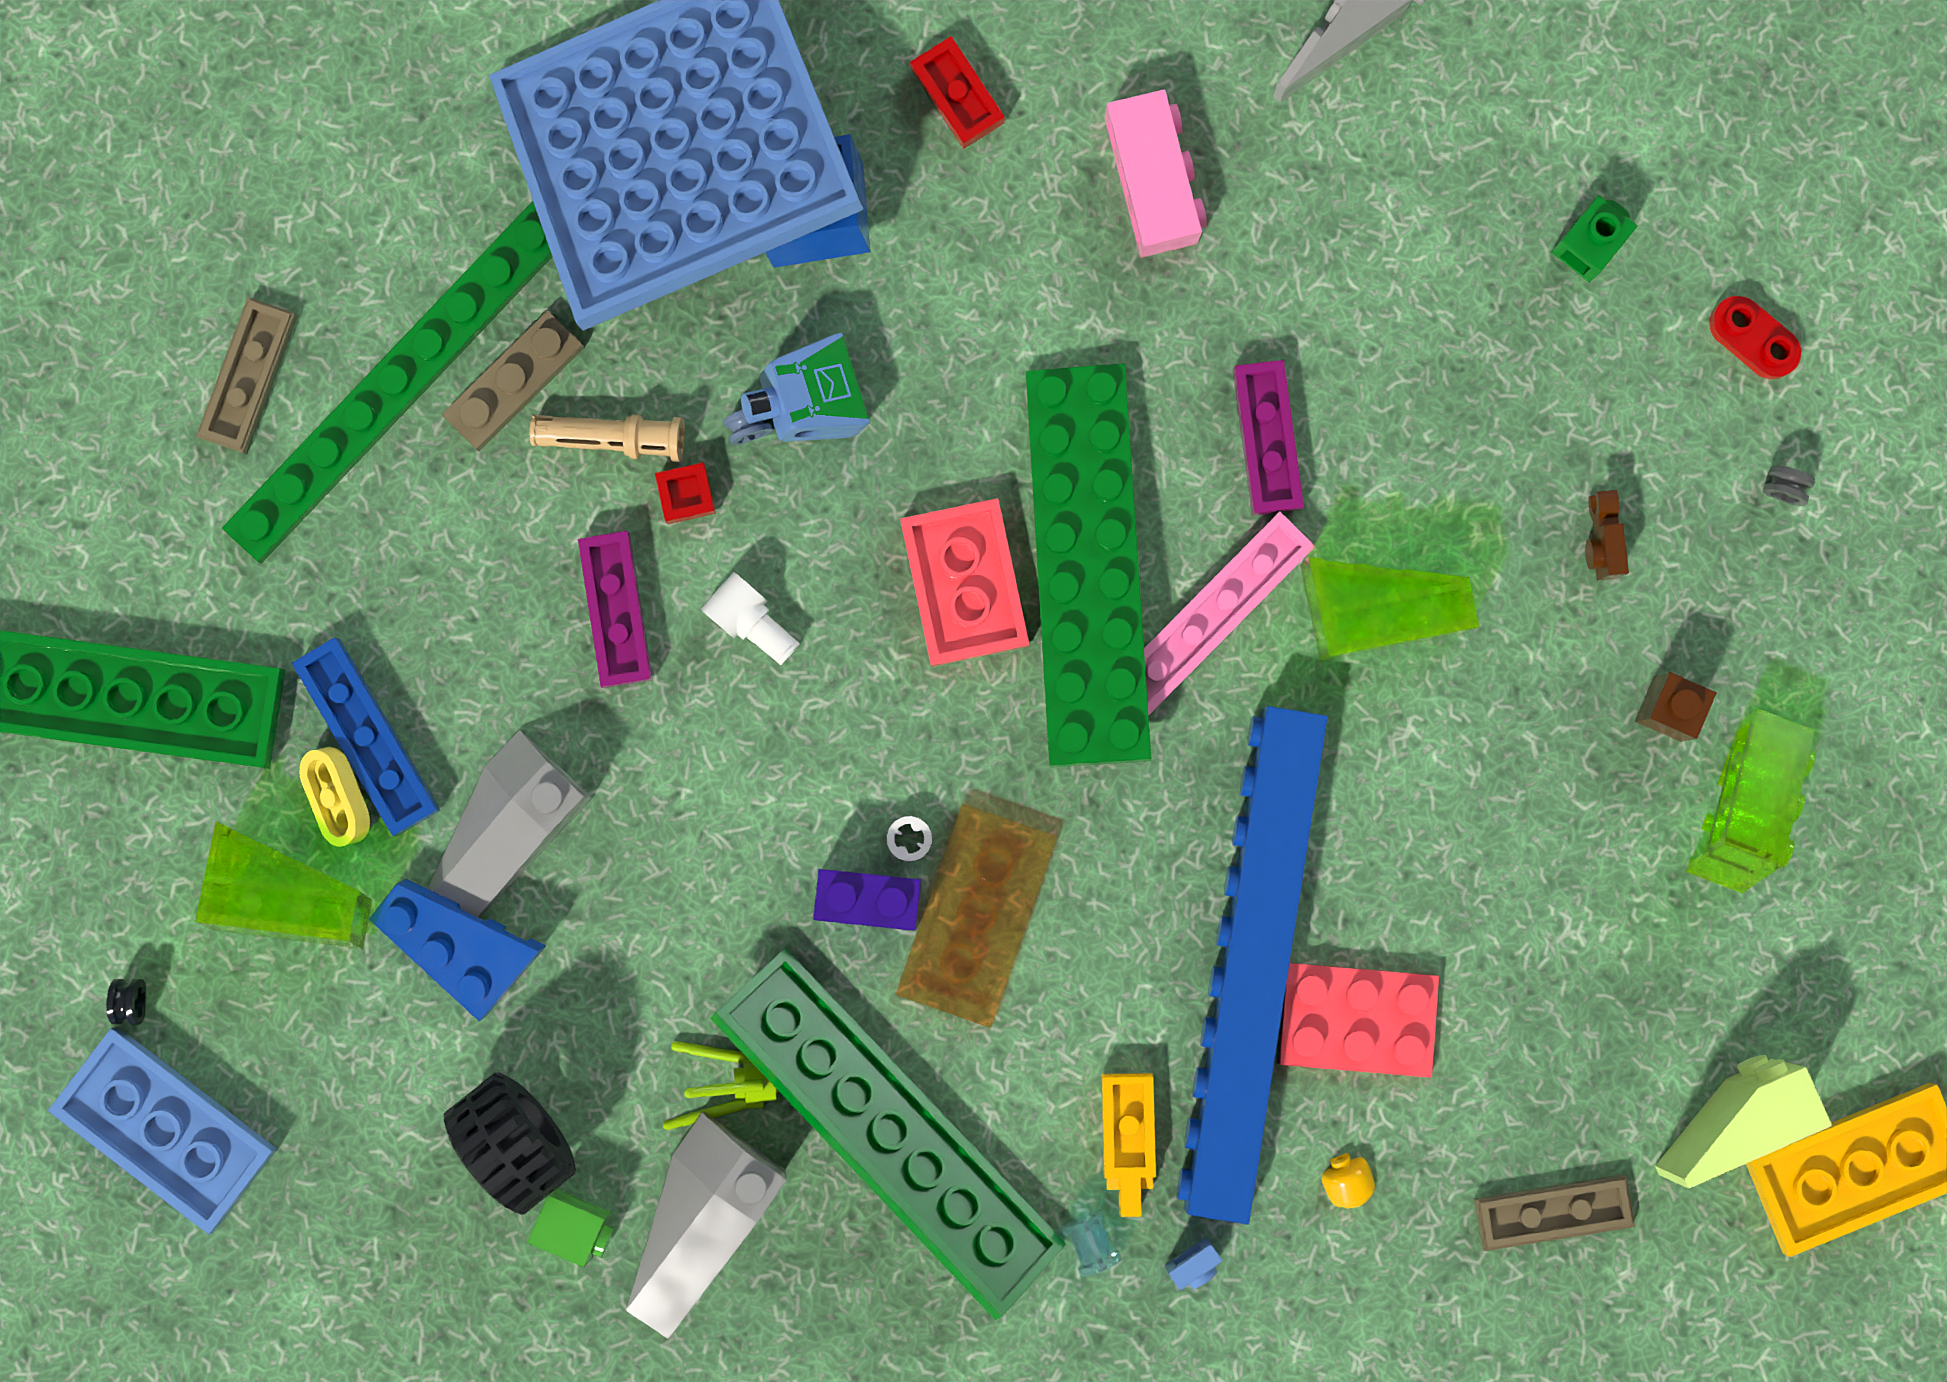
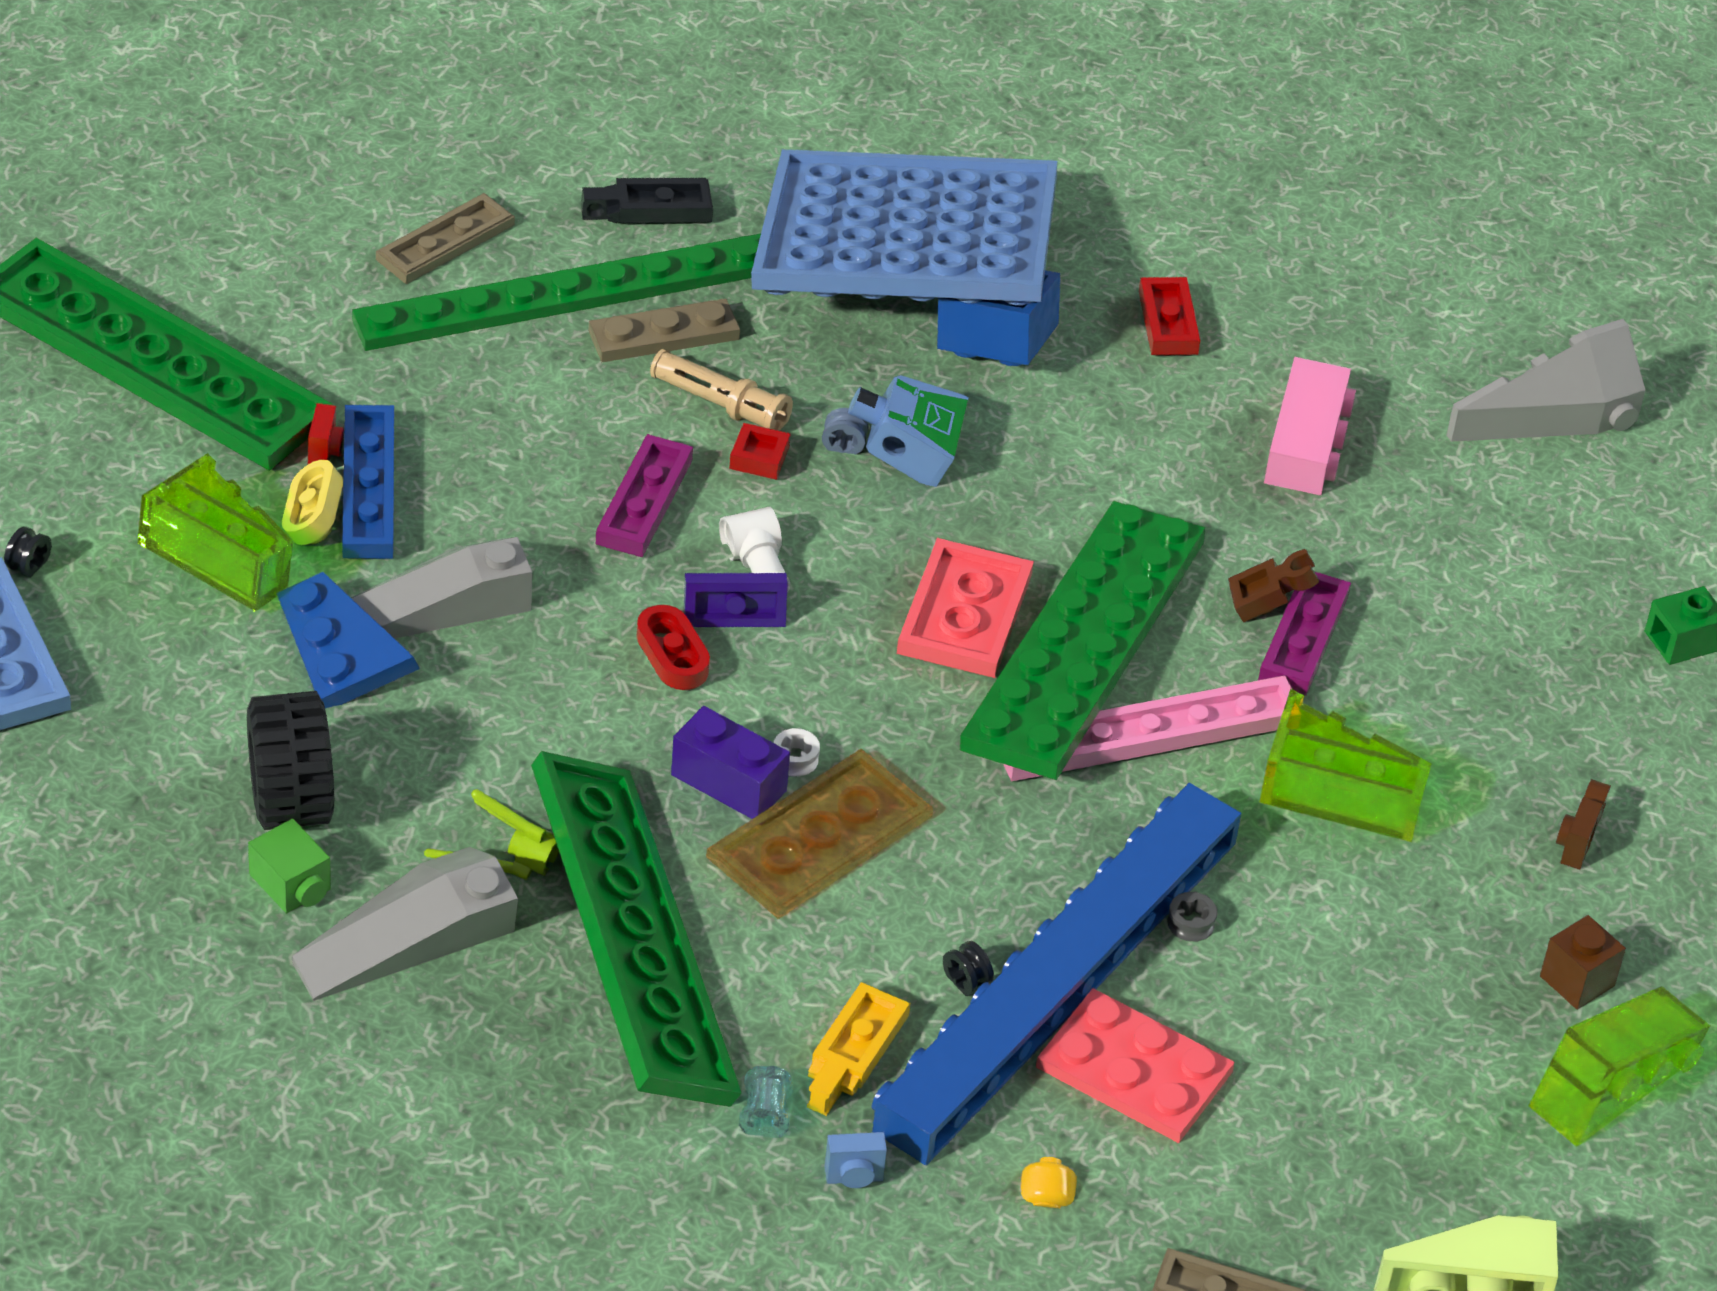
camera: 25 degrees right, 40 degrees down
(297, 713) = (324, 435): none -> red plate
(407, 217) = (649, 201): none -> black hinge
(741, 781) = (676, 649): none -> red plate
(751, 705) = (736, 599): none -> dark purple plate
(1178, 1003) = (968, 967): none -> black bush
(1211, 408) = (1267, 584): none -> reddish brown plate
(1337, 843) = (1197, 928): none -> dark grey bush

